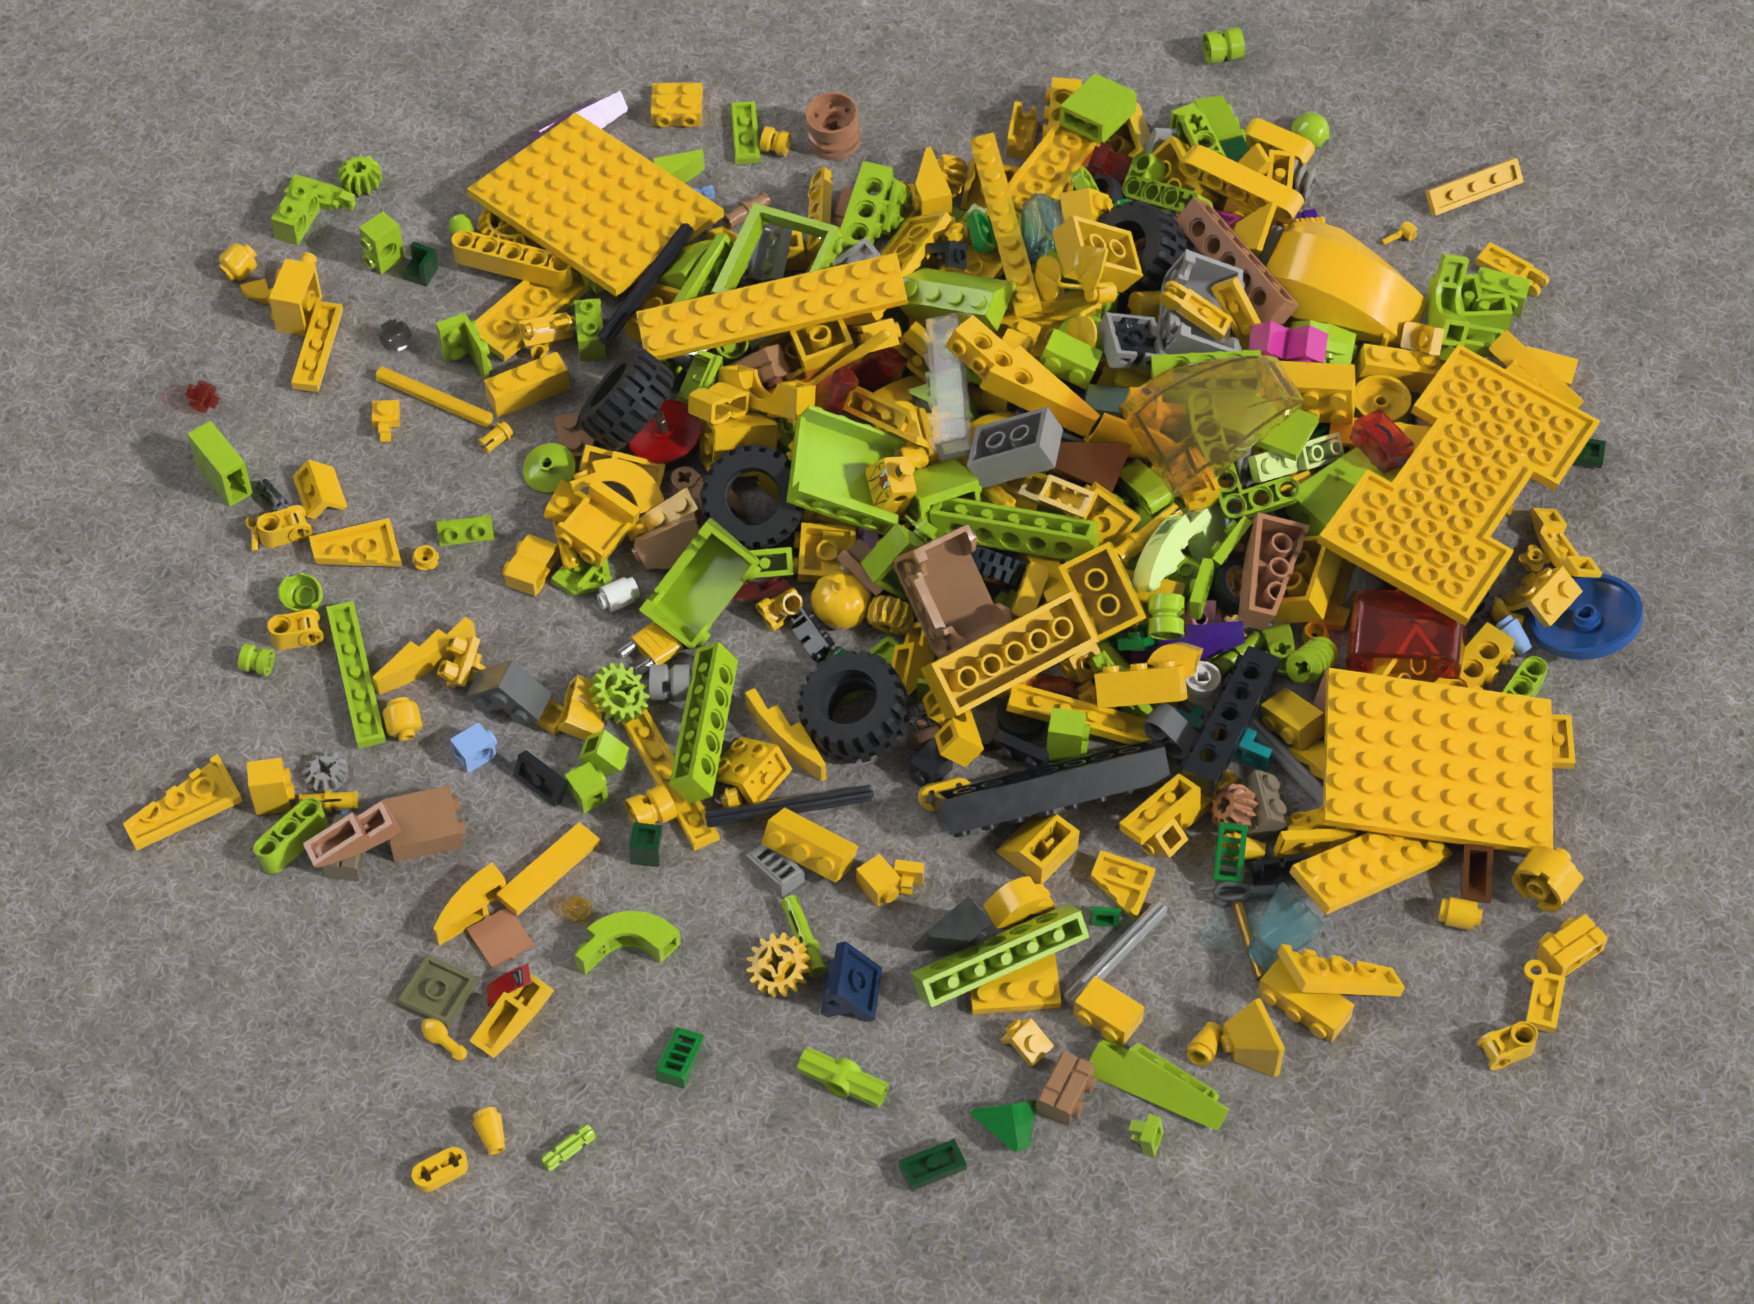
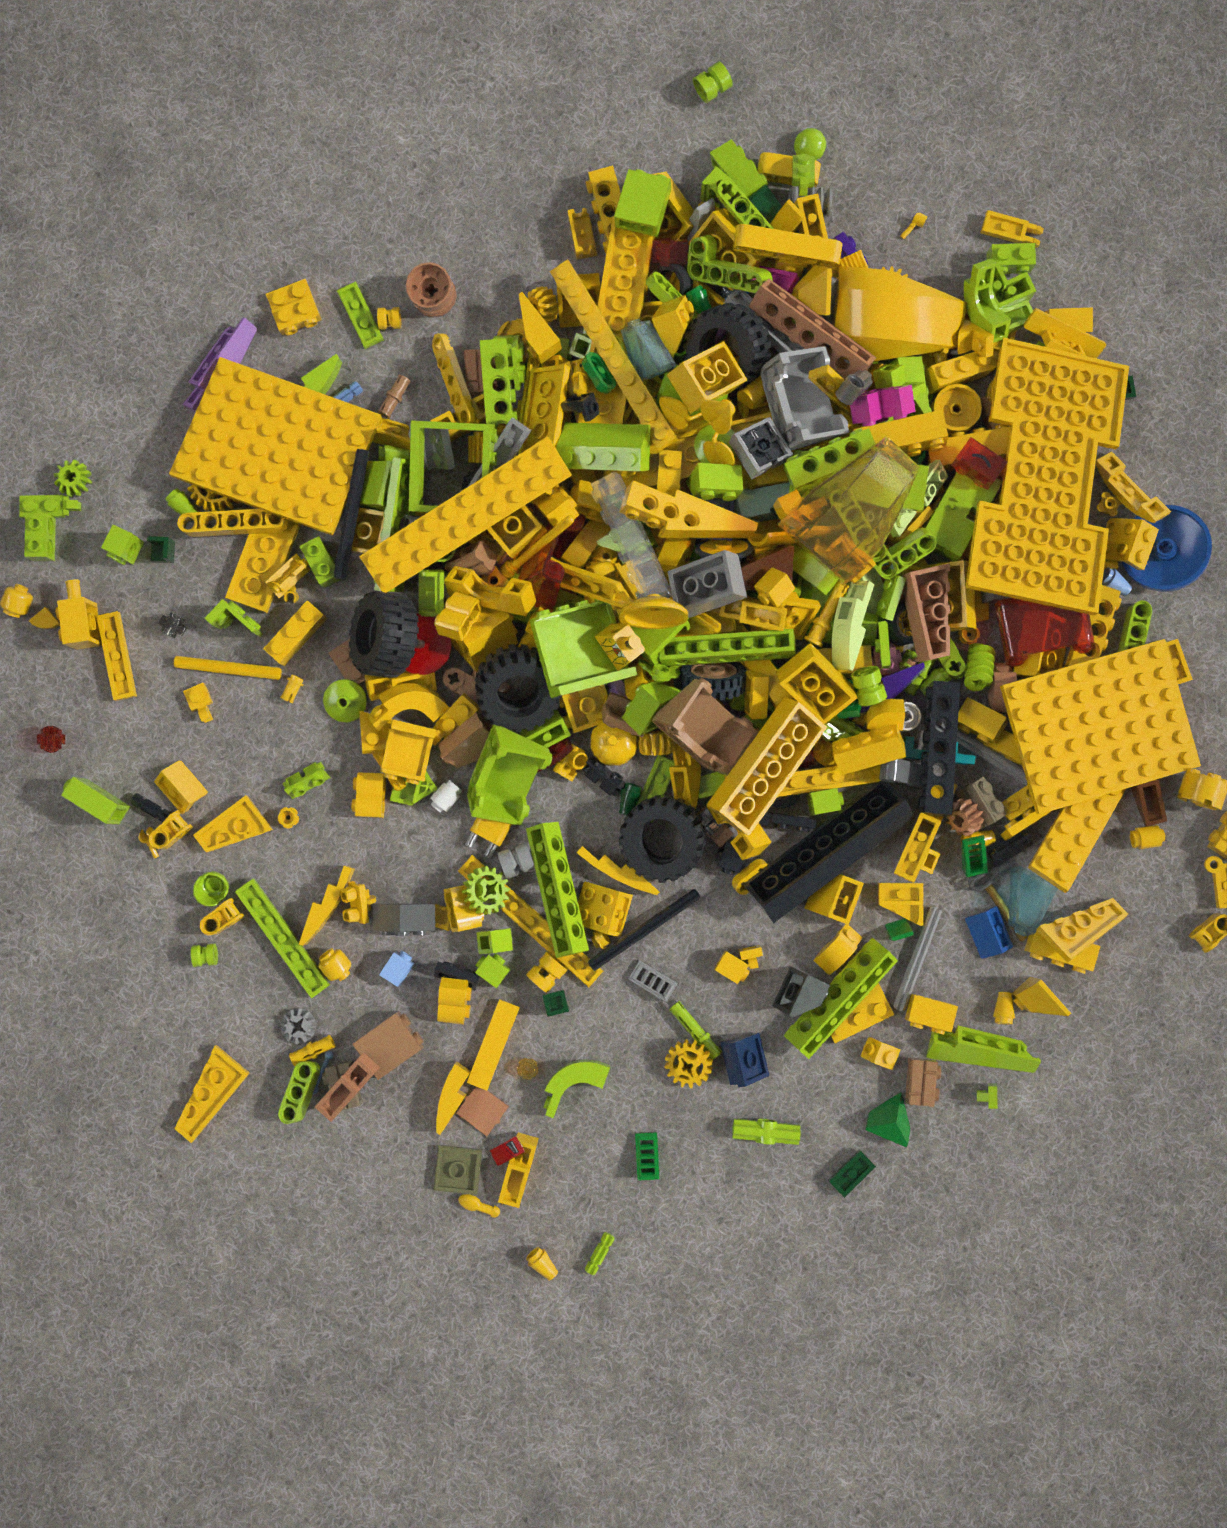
camera: 15 degrees left, 30 degrees up
(270, 786) = (267, 1064): yellow brick -> none
(439, 1169) = (516, 1300): yellow beam -> none
(523, 797) = (453, 1001): none -> yellow brick
(809, 845) = (672, 960): yellow brick -> none
(940, 448) = (654, 613): none -> yellow dish
(1091, 469) = (774, 587): none -> yellow brick
(1195, 309) = (802, 400): yellow hinge -> none
(1219, 952) = (989, 933): none -> blue panel
(1259, 310) = (854, 386): none -> flat silver piece
(1289, 137) = (803, 173): none -> lime hinge
(1474, 186) = (958, 155): yellow plate -> none

